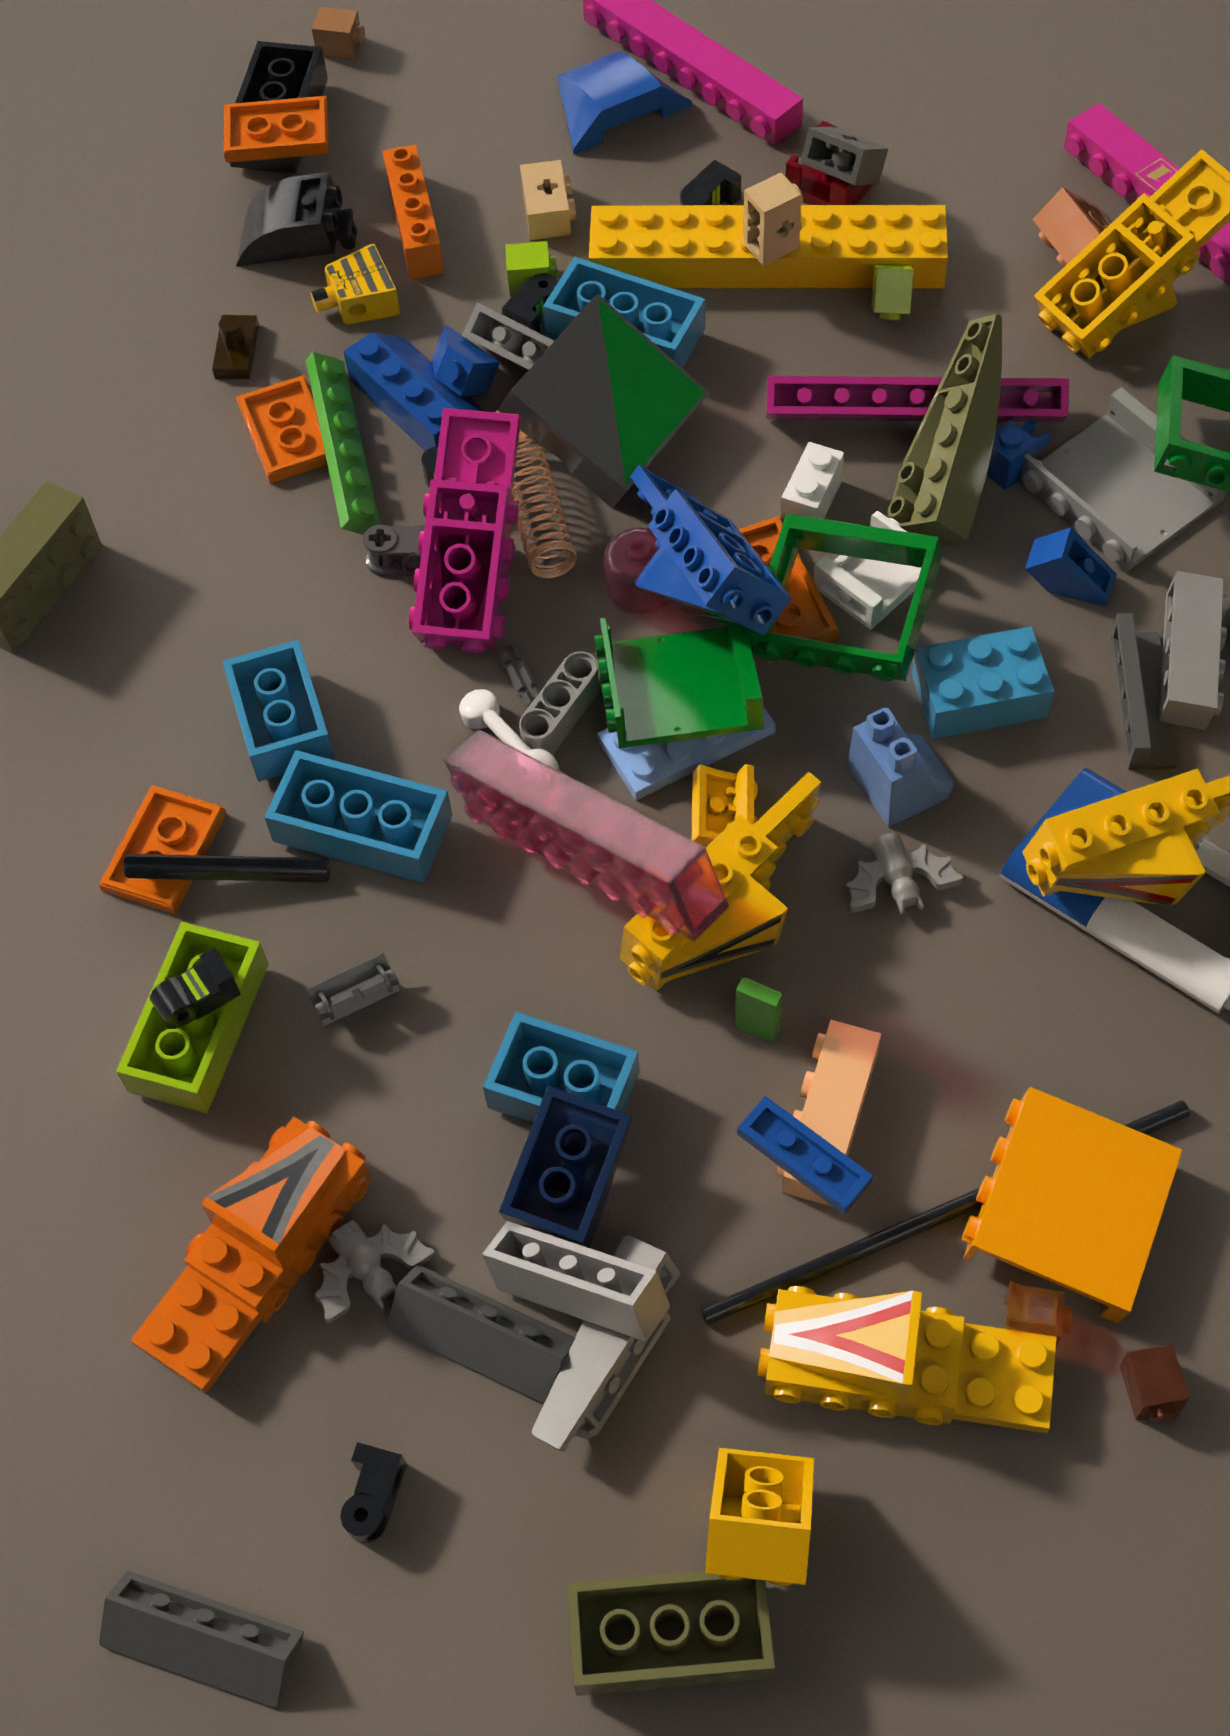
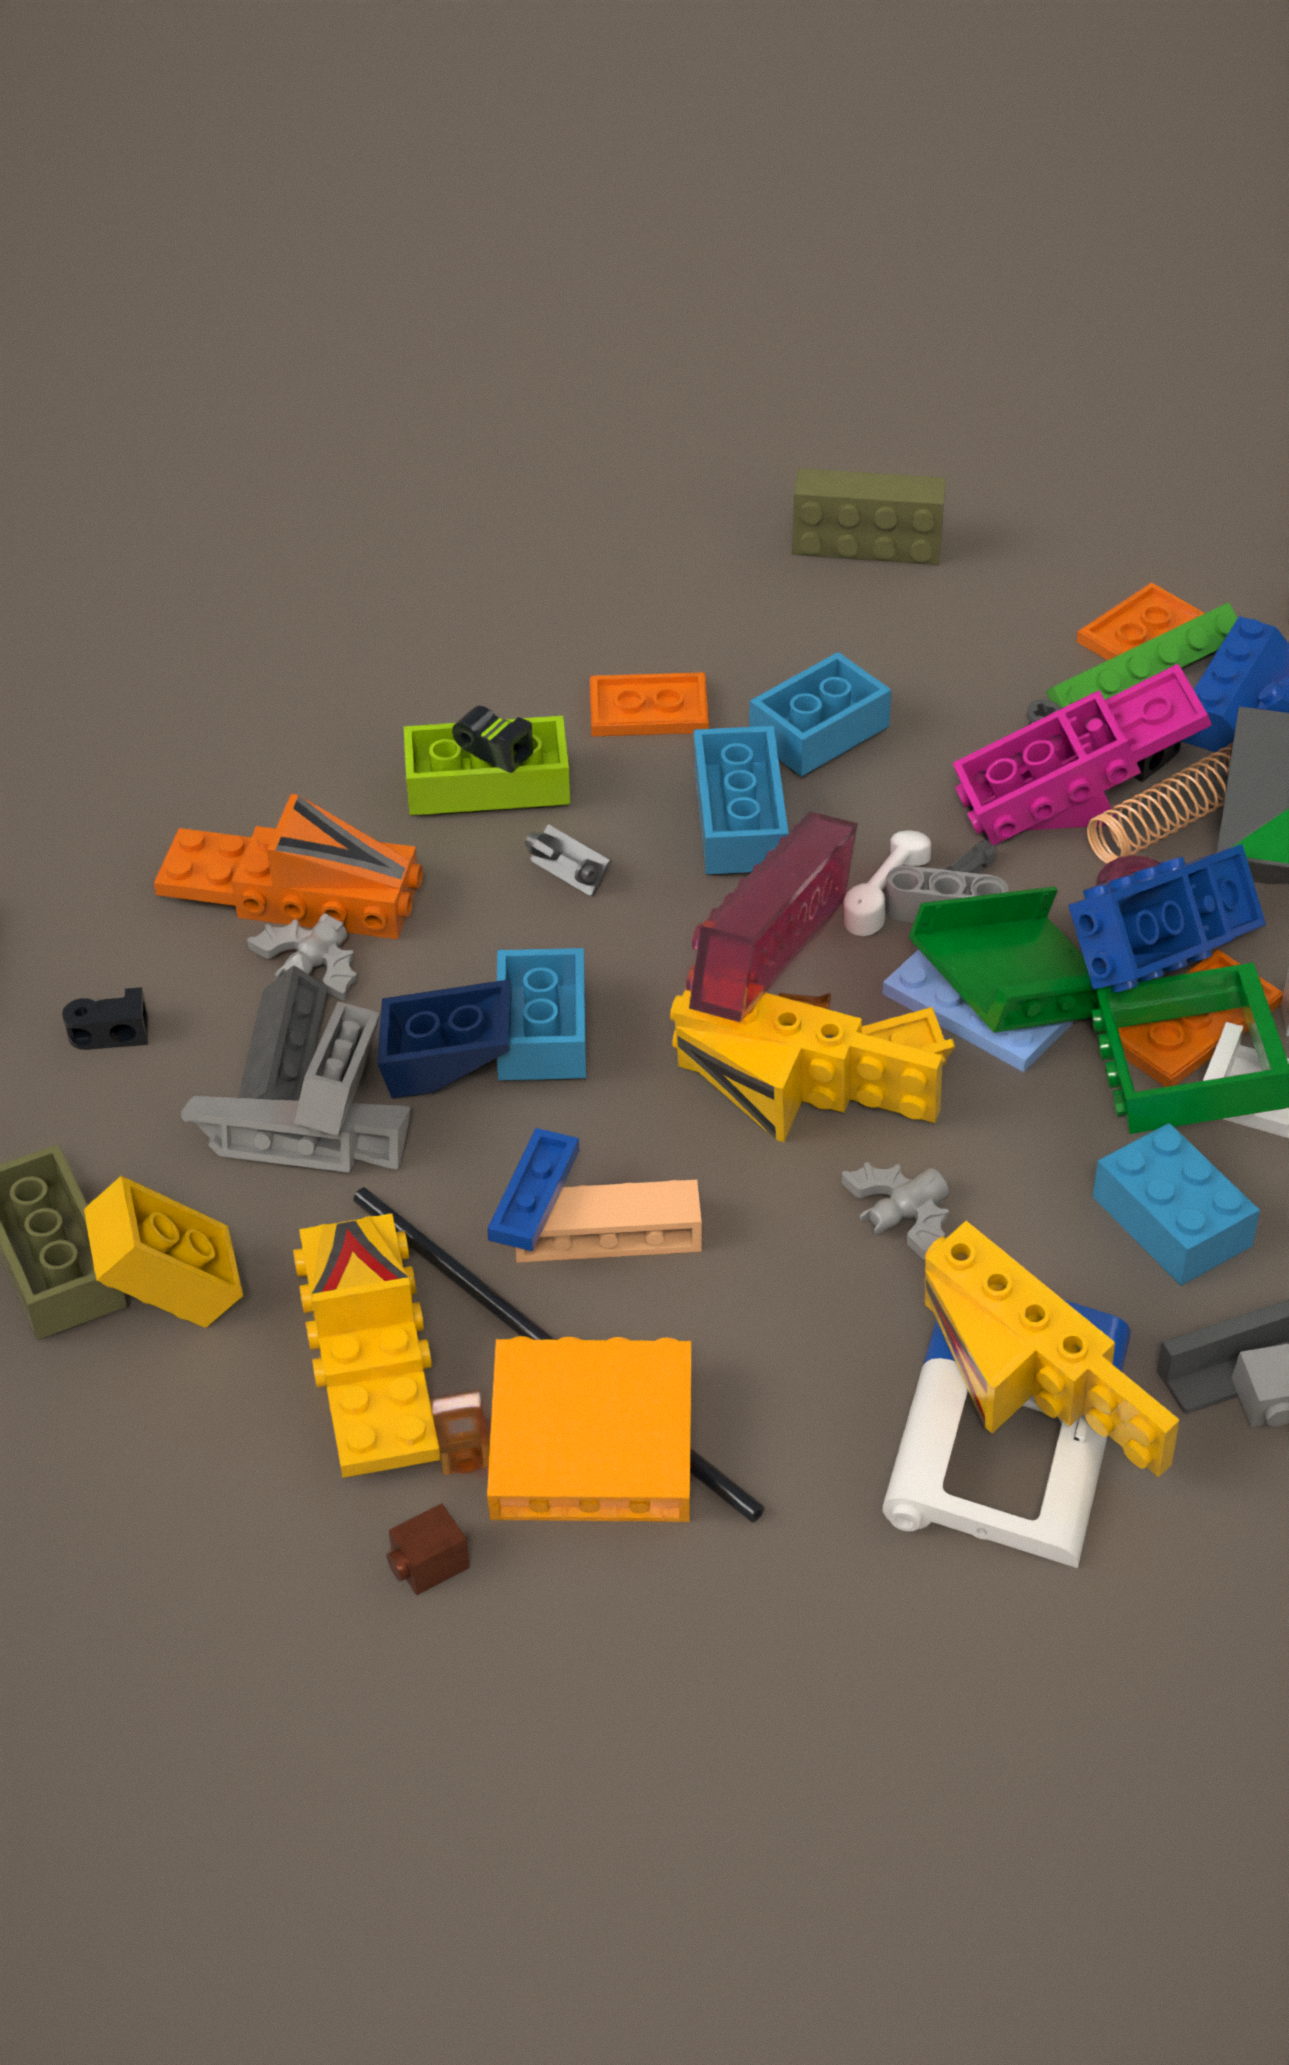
camera: 65 degrees right, 15 degrees down
(226, 868) = (646, 742): black axle -> none
(235, 346) = (1213, 564): dark brown tile -> none
(758, 1009) = (680, 1123): bright green tile -> none
(896, 768) = (1021, 1157): medium blue hips -> none

